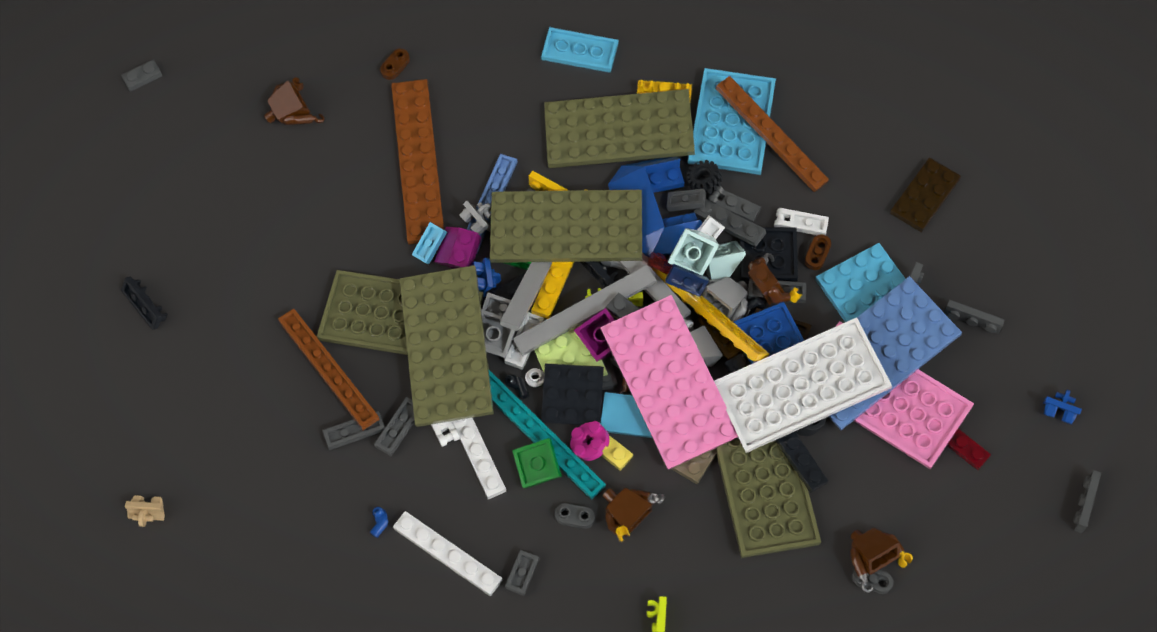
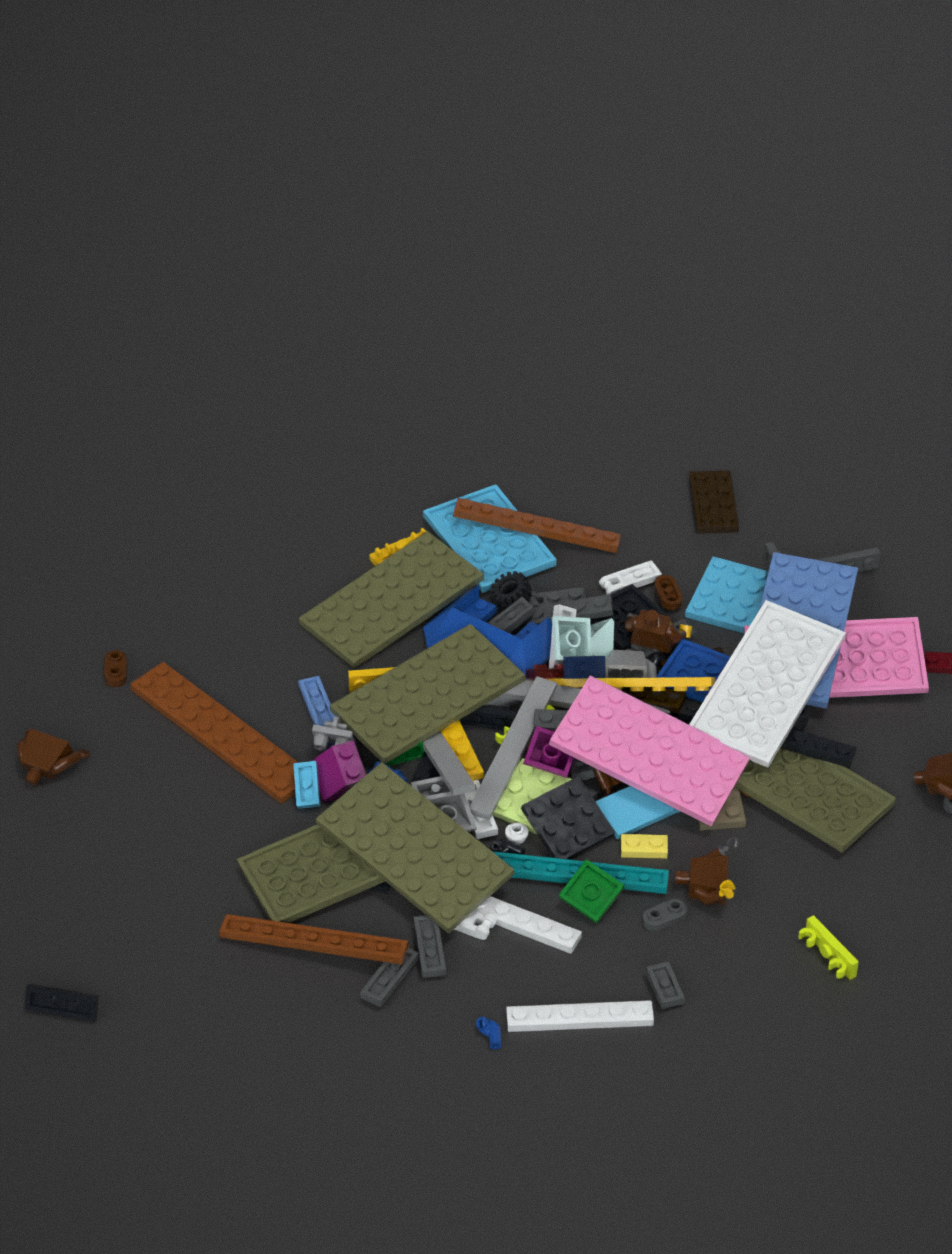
camera: 40 degrees left, 20 degrees down
(143, 511) = (249, 1167): tan hips -> none
(579, 49) = (287, 561): medium azure tile -> none
(582, 434) = (612, 838): dark pink plate -> none

